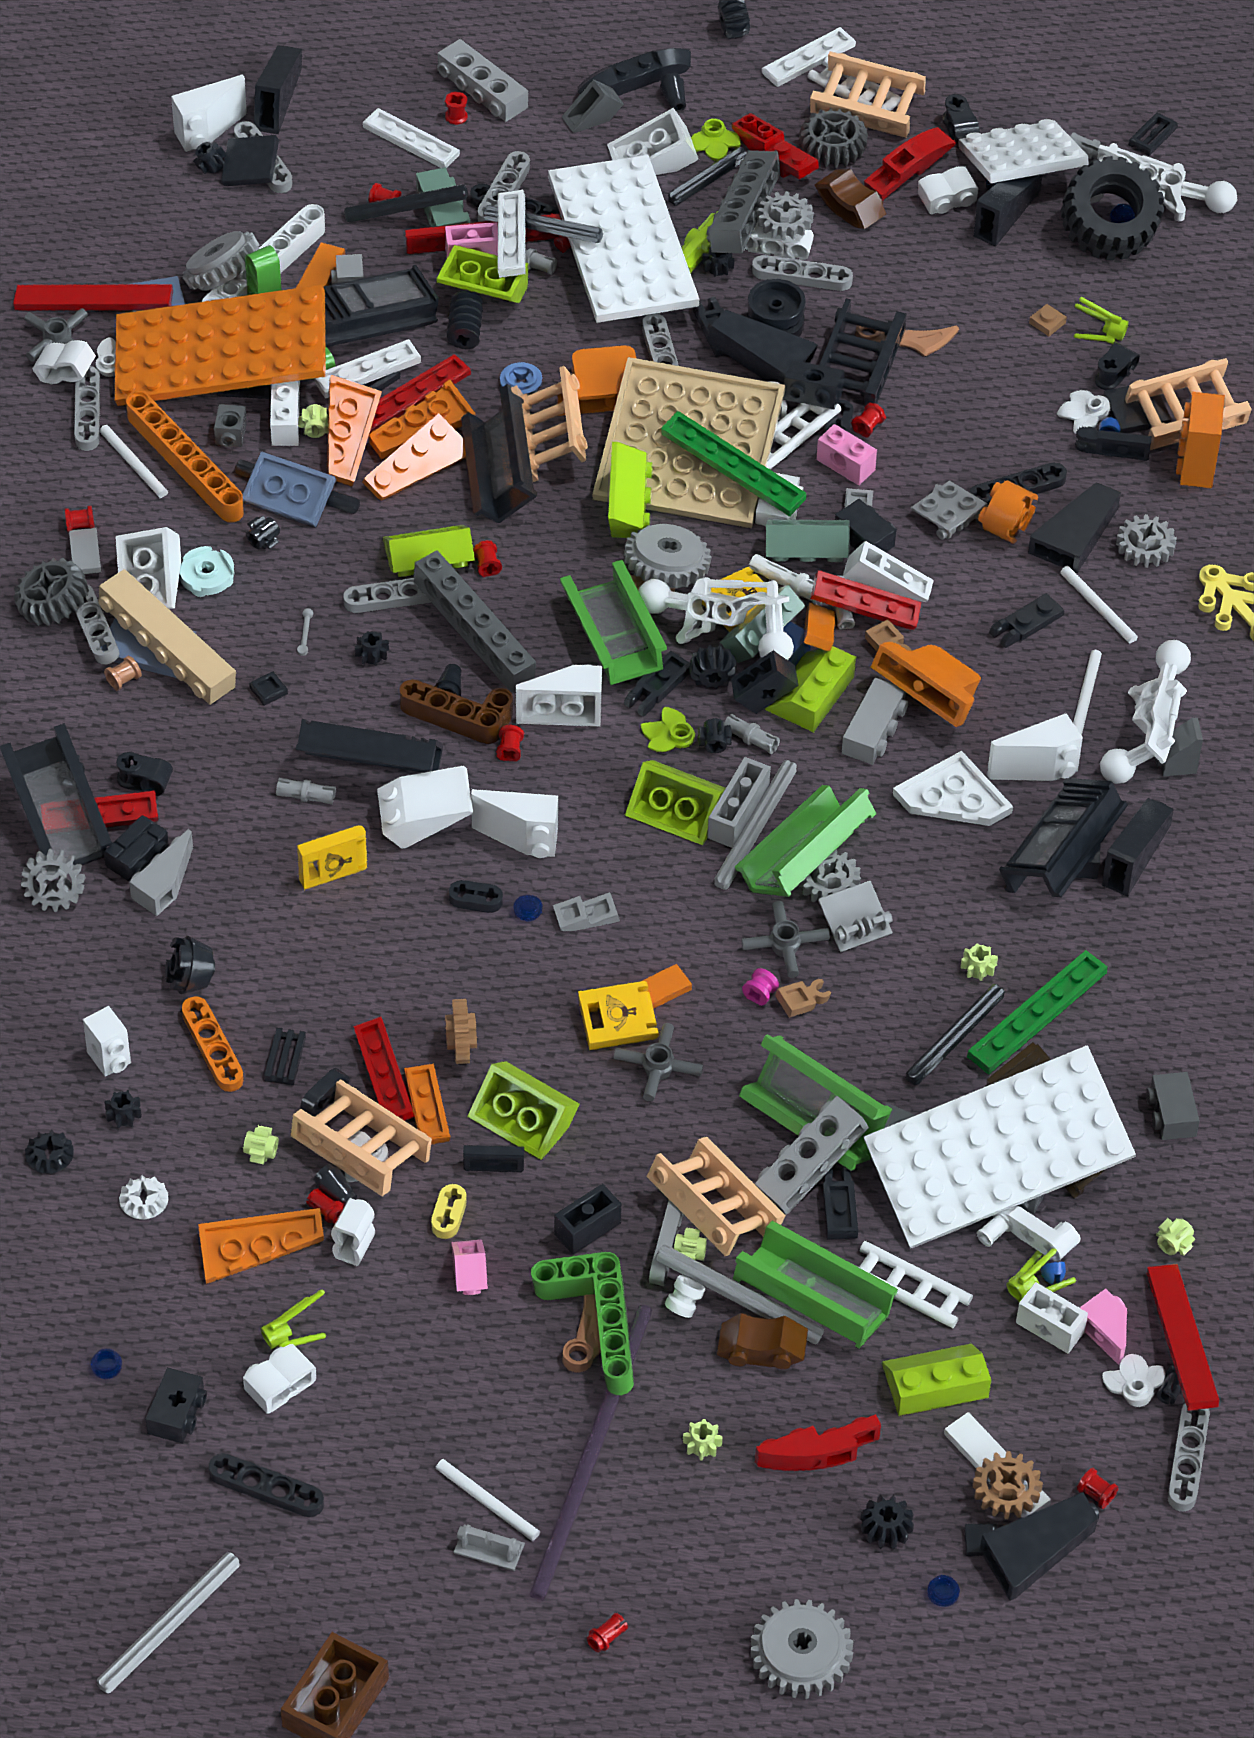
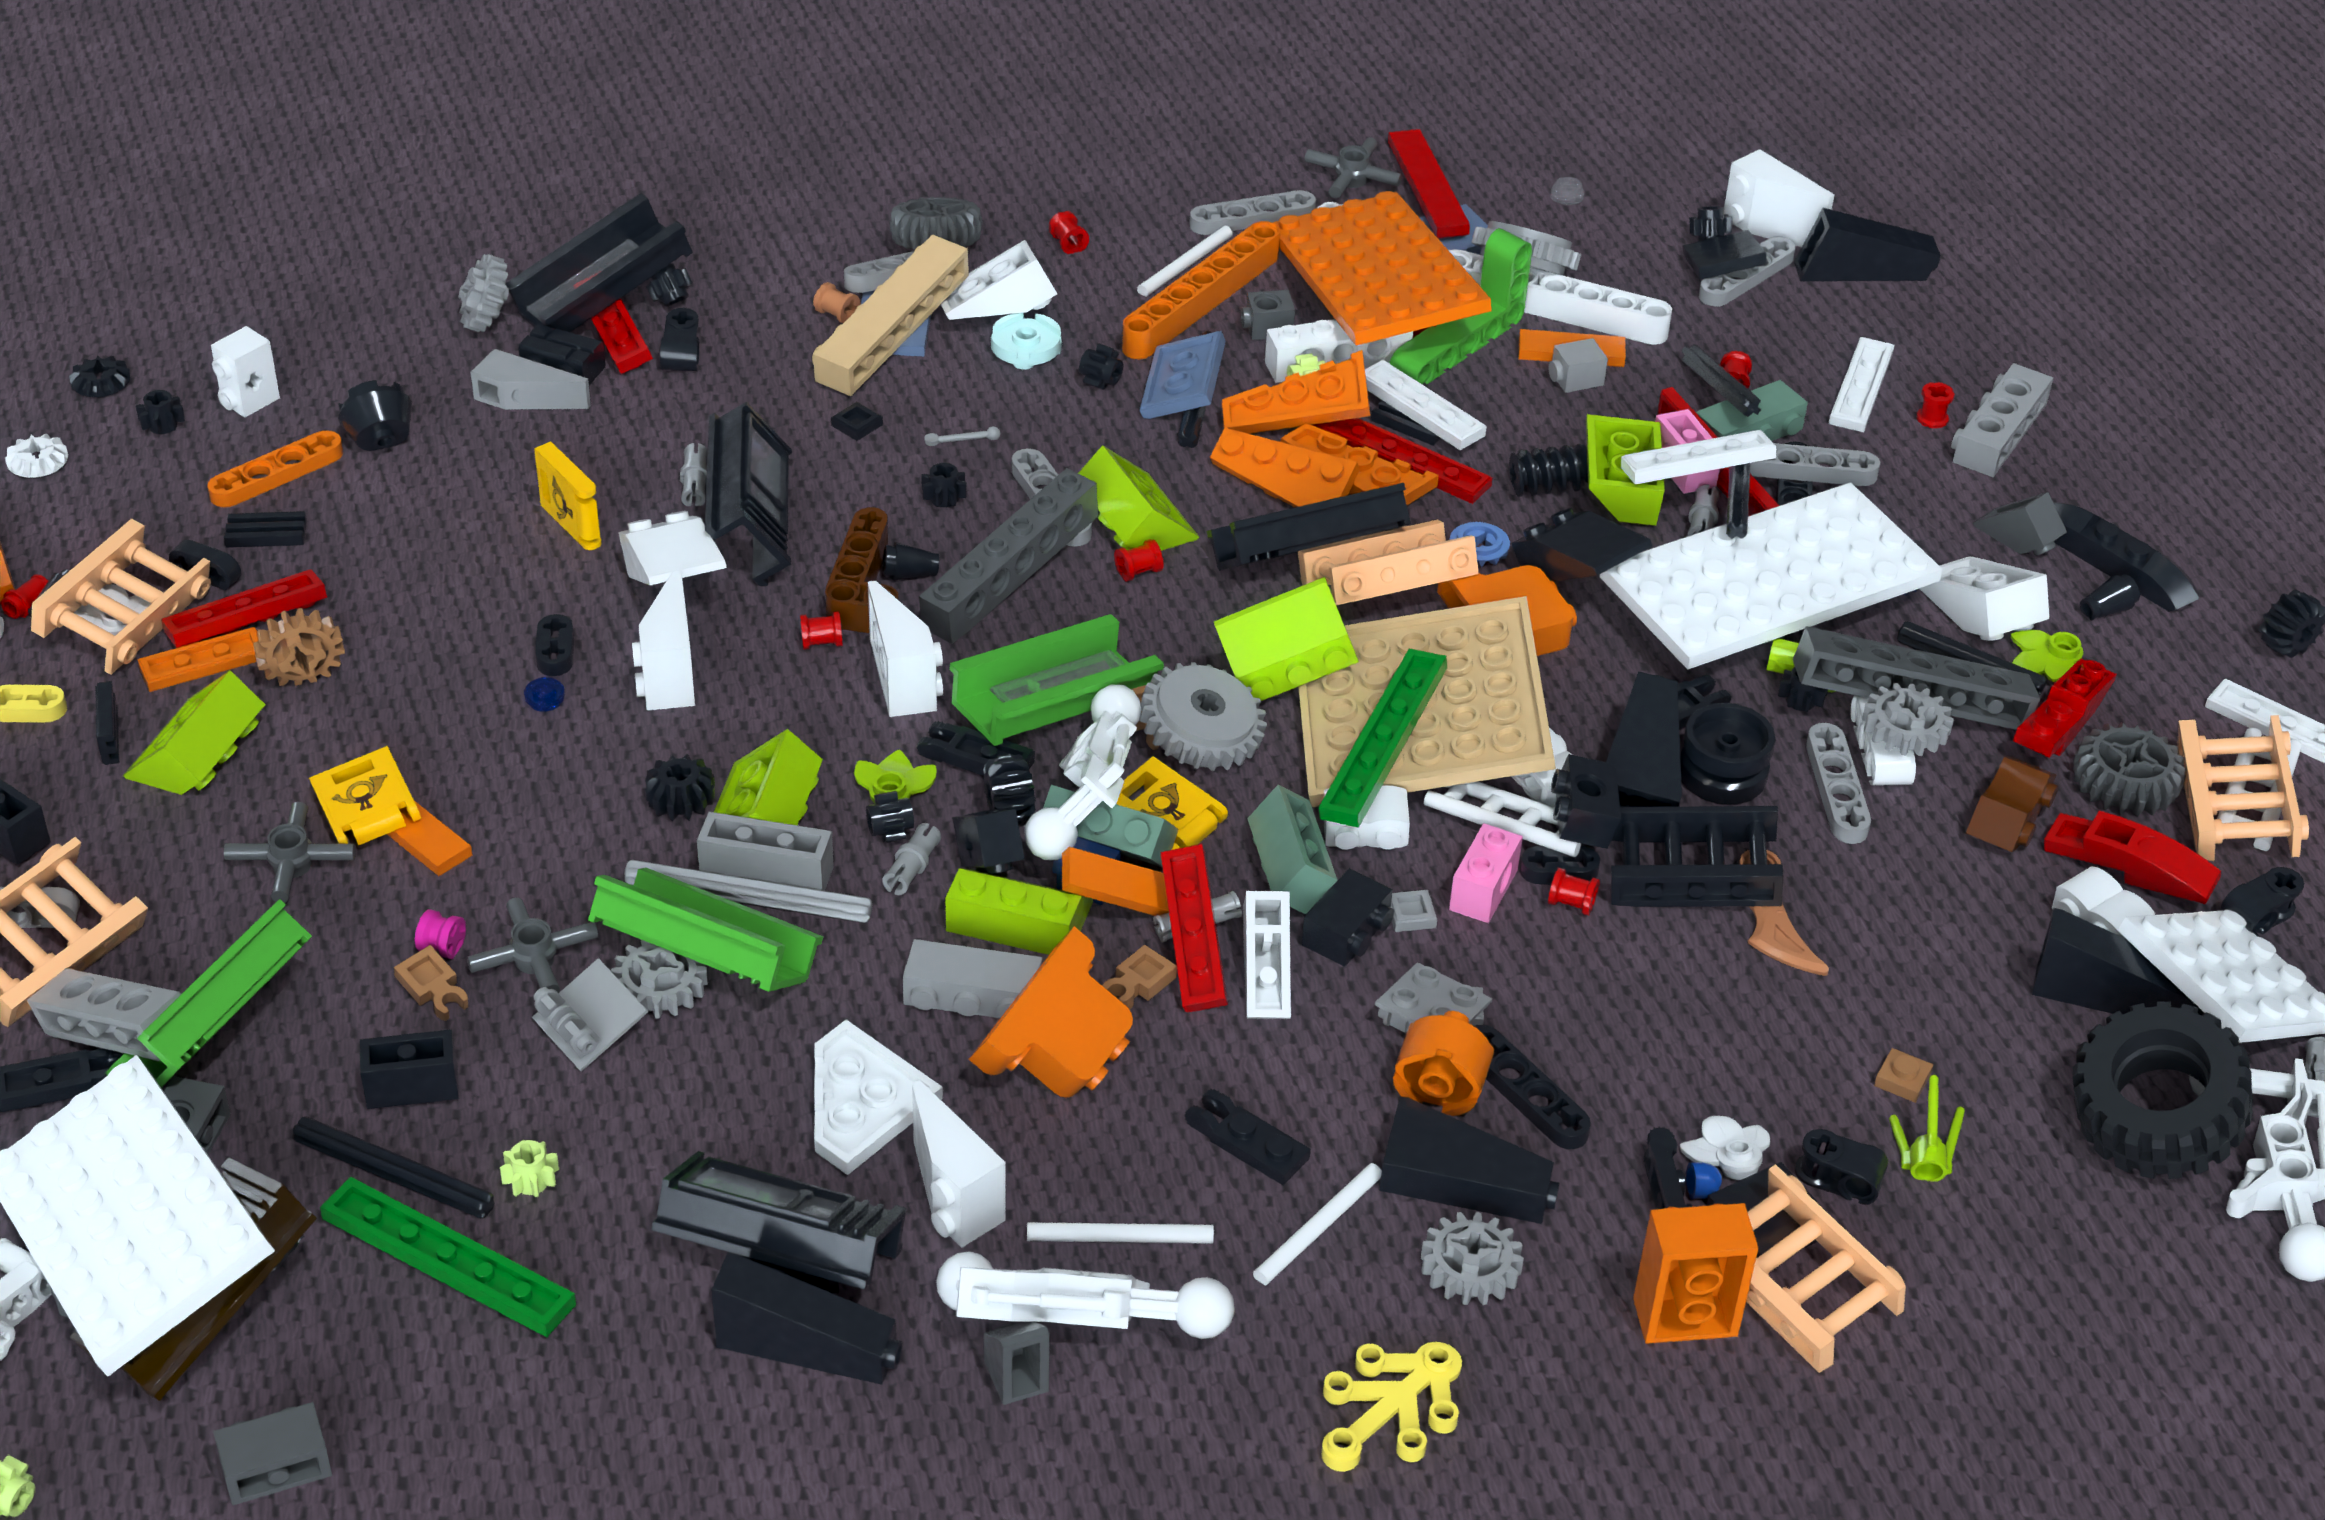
camera: 75 degrees right, 10 degrees down
(64, 362) = (1306, 173): white brick -> none
(85, 550) = (1040, 242): light grey slope -> none
(129, 224) = (1567, 191): none -> clear plate
(260, 1144) = (108, 519): yellowish green gear -> none
(378, 306) = (1516, 378): black piece -> none
(571, 322) = (1577, 545): none -> black slope
(579, 915) = (548, 750): light grey slope -> none
(652, 842) = (679, 787): none -> black gear
(658, 354) = (1636, 652): light grey beam -> none
(799, 583) = (1237, 827): white pin -> none
(888, 1009) = (409, 1069): none -> black brick

